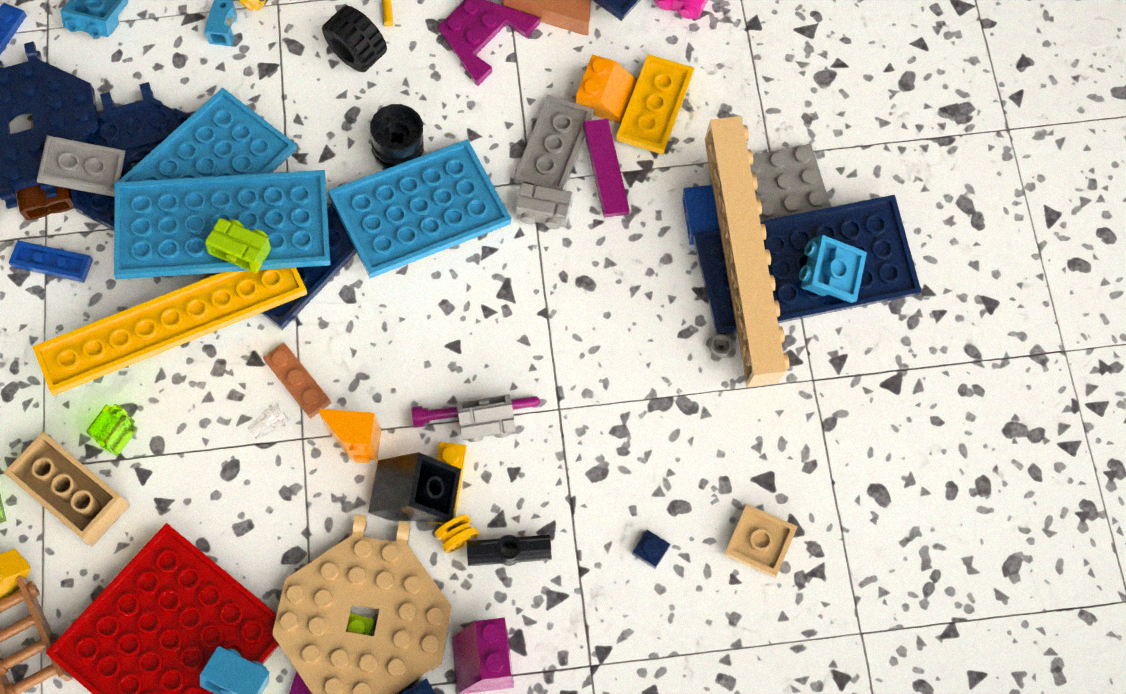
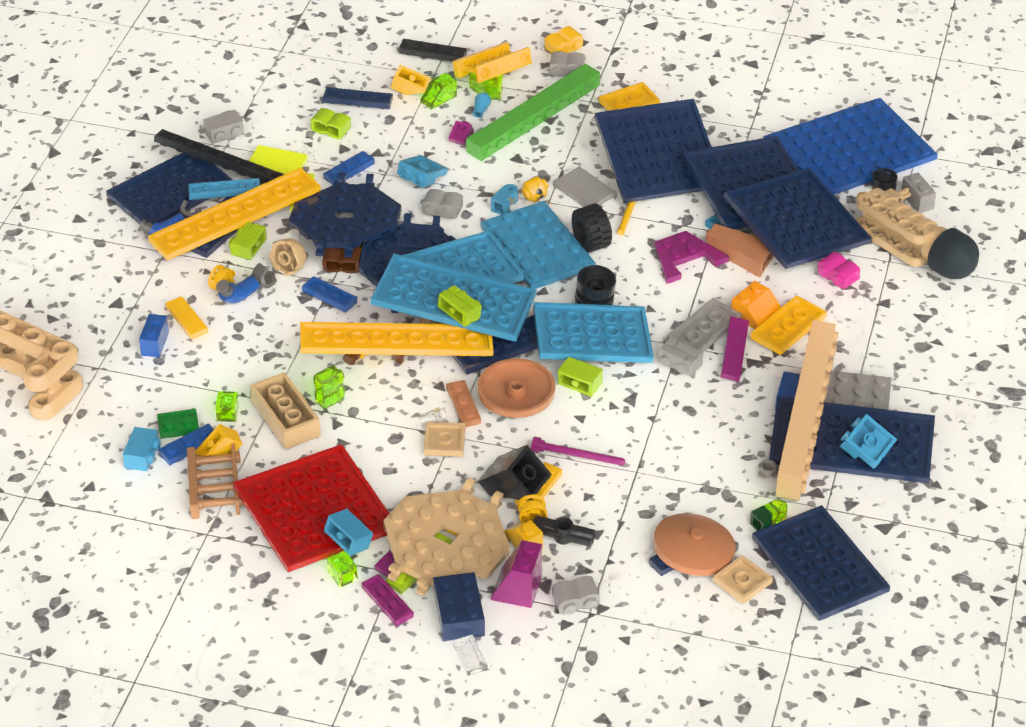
camera: 20 degrees right, 25 degrees down
(80, 166) = (374, 242): light grey tile -> none
(143, 57) = (442, 203): none -> light grey brick
(291, 81) = (538, 244): none -> dark azure plate
(296, 452) = (444, 439): none -> tan plate
(355, 433) = (489, 434): light orange slope -> none
(358, 337) = (516, 388): none -> nougat dish
(430, 283) = (580, 376): none -> lime brick
(460, 577) = (524, 531): none -> yellow slope
(486, 418) = (583, 455): brick -> none
(565, 652) = (575, 595): none -> light grey brick
(680, 509) = (693, 544): none -> nougat dish
(755, 418) = (769, 514): none -> leg
(843, 476) = (820, 562): none -> dark blue plate

